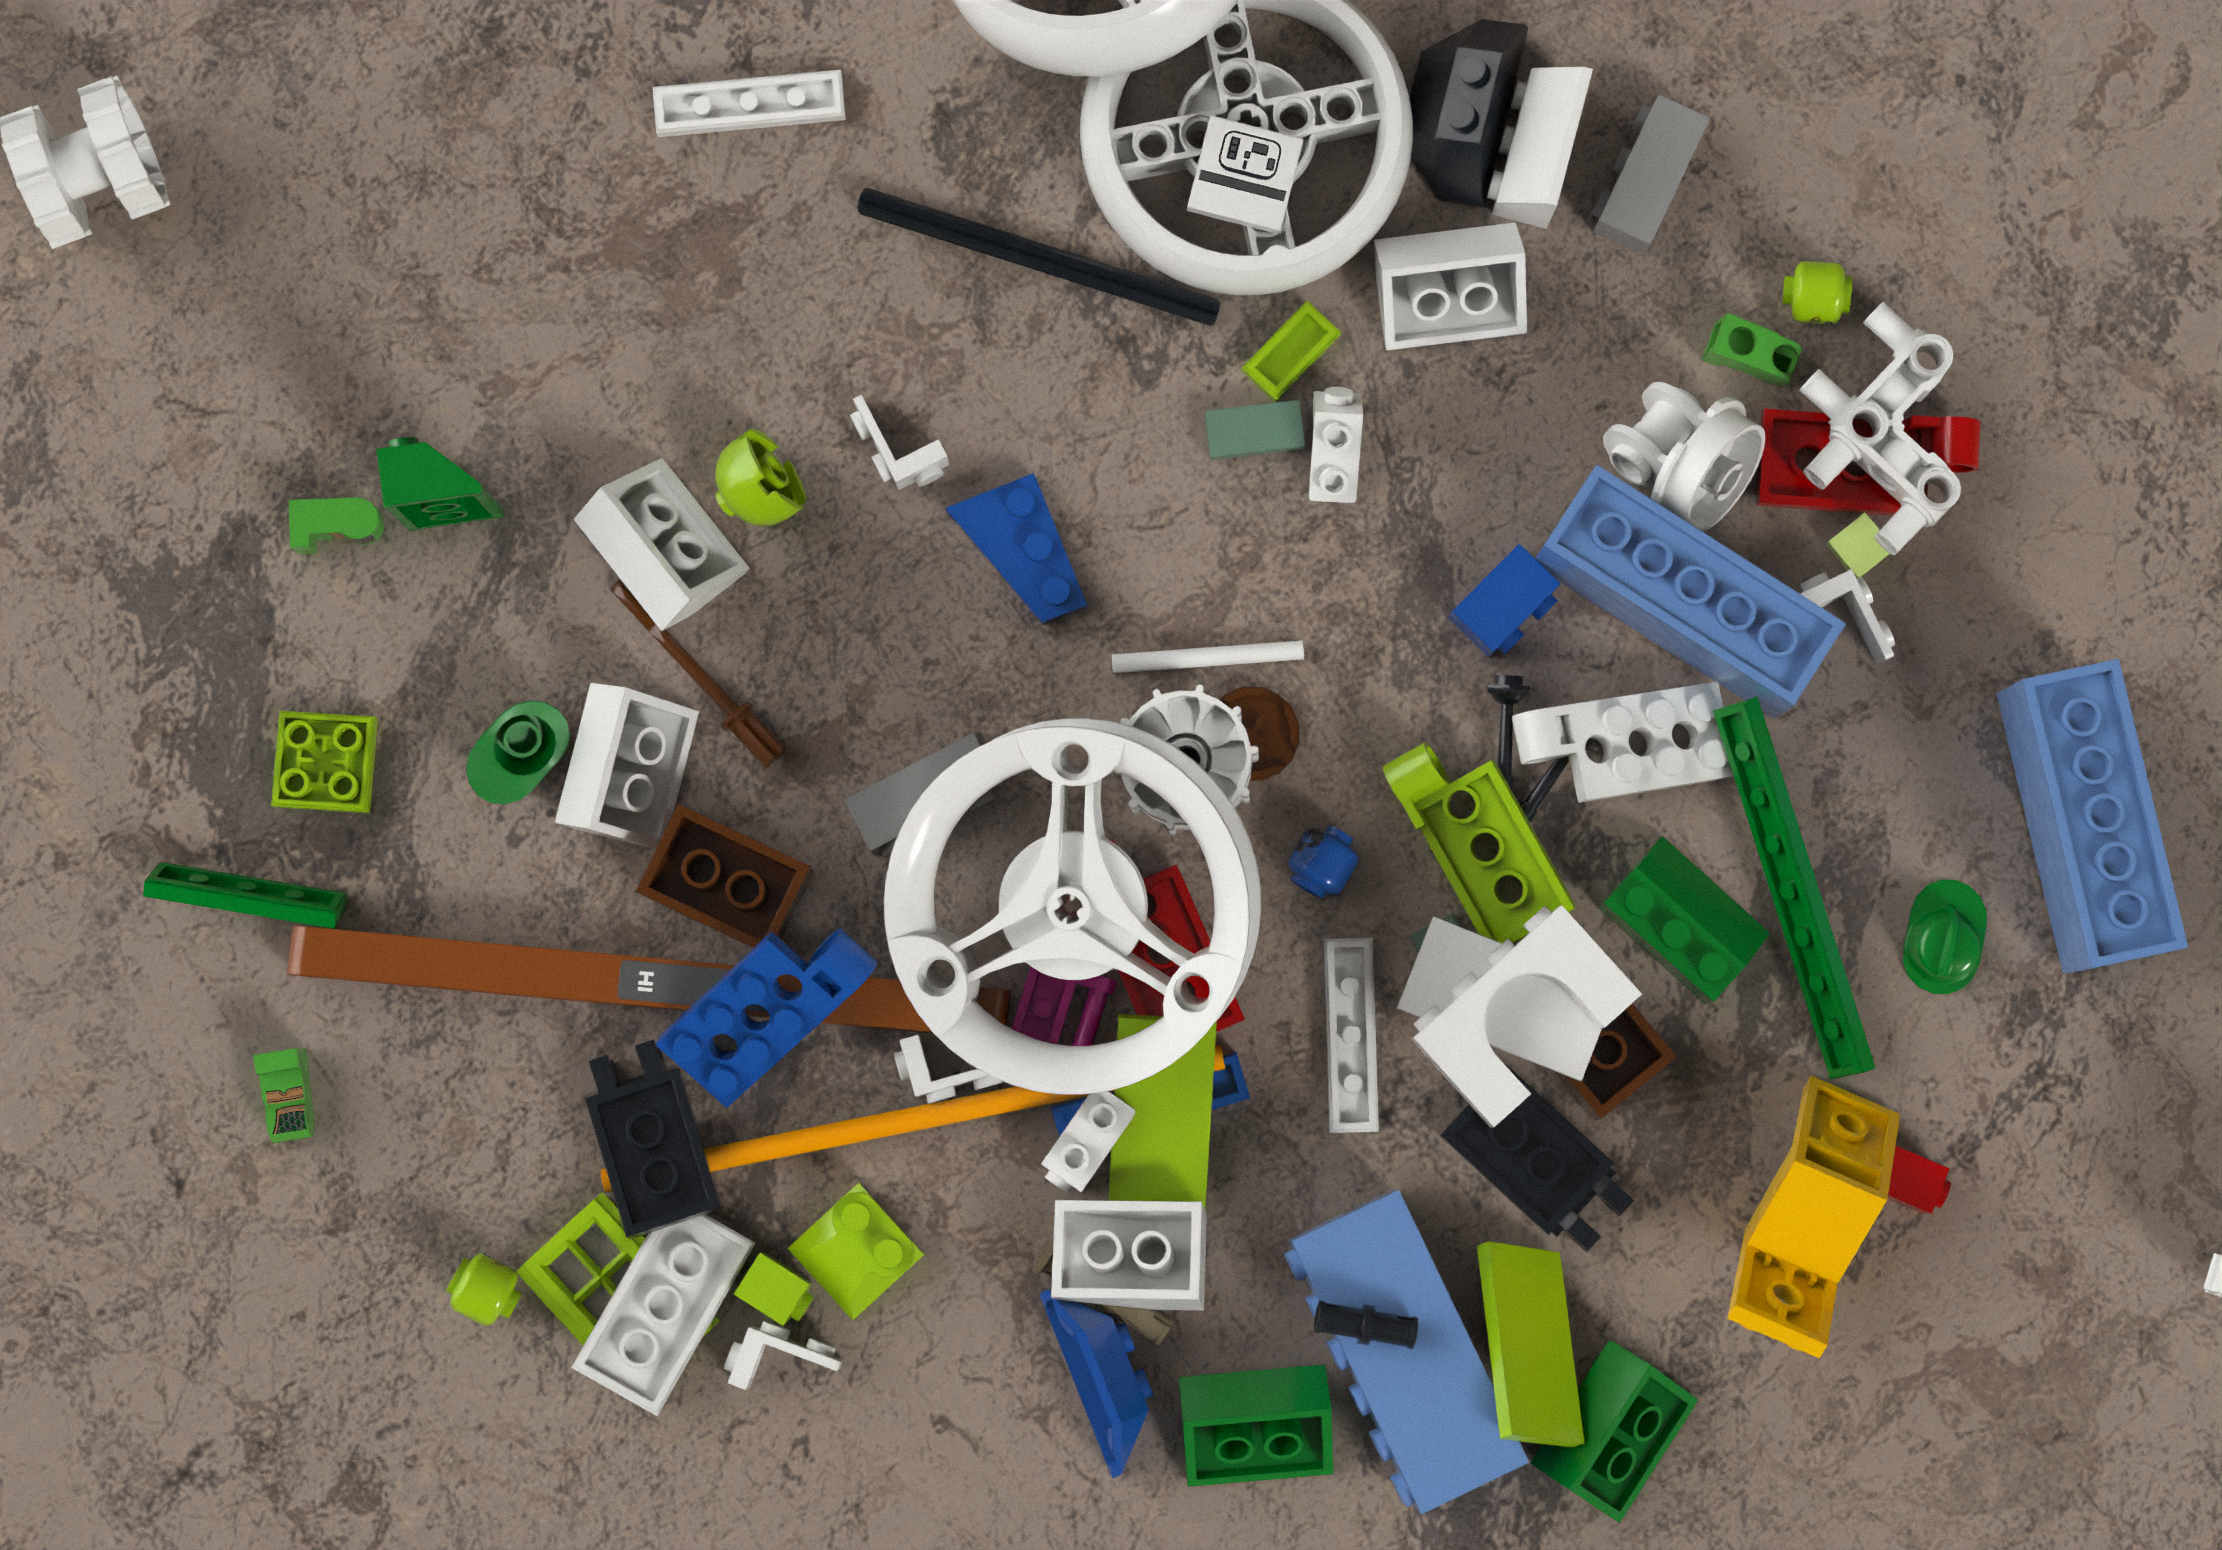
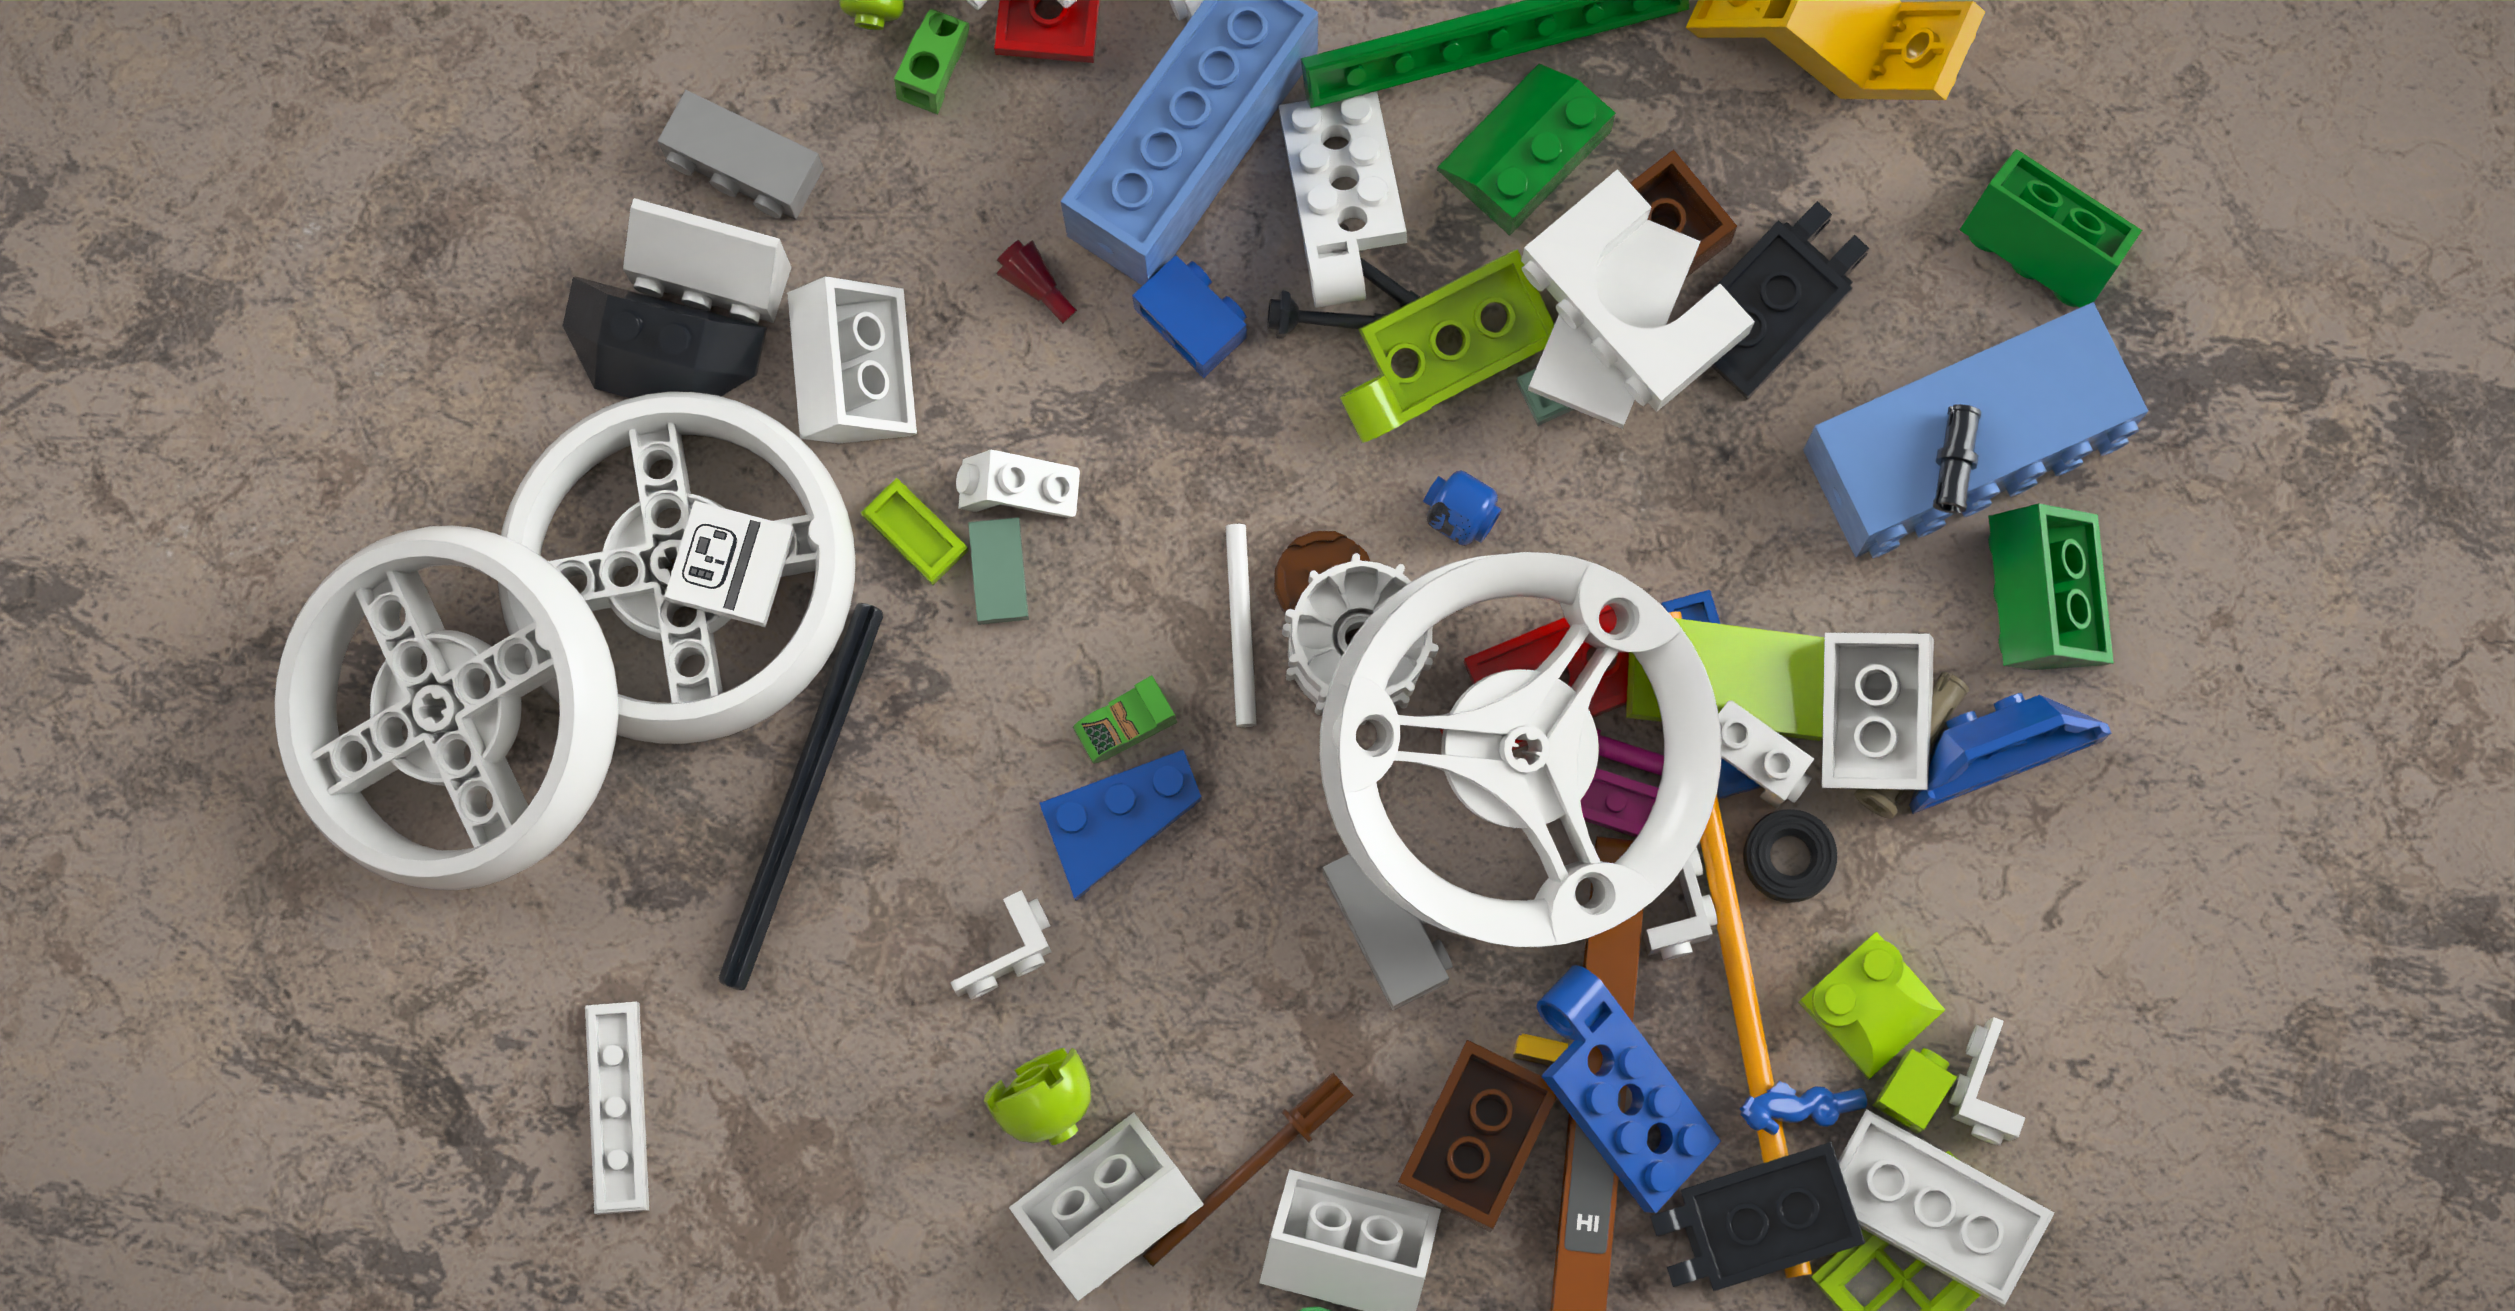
camera: 85 degrees left, 5 degrees down
(757, 1164) = (1784, 1106): none -> blue animal
(808, 936) = (1538, 1049): none -> yellow tile
(965, 1174) = (1799, 825): none -> black tyre
(1112, 551) = (1125, 721): none -> bright green leg
(1351, 1035) = (1643, 486): white tile -> none
(1530, 1345) = (1969, 304): lime tile -> none
(1544, 448) = (1029, 273): none -> dark red cone
(1688, 456) = (1066, 102): white piece -> none

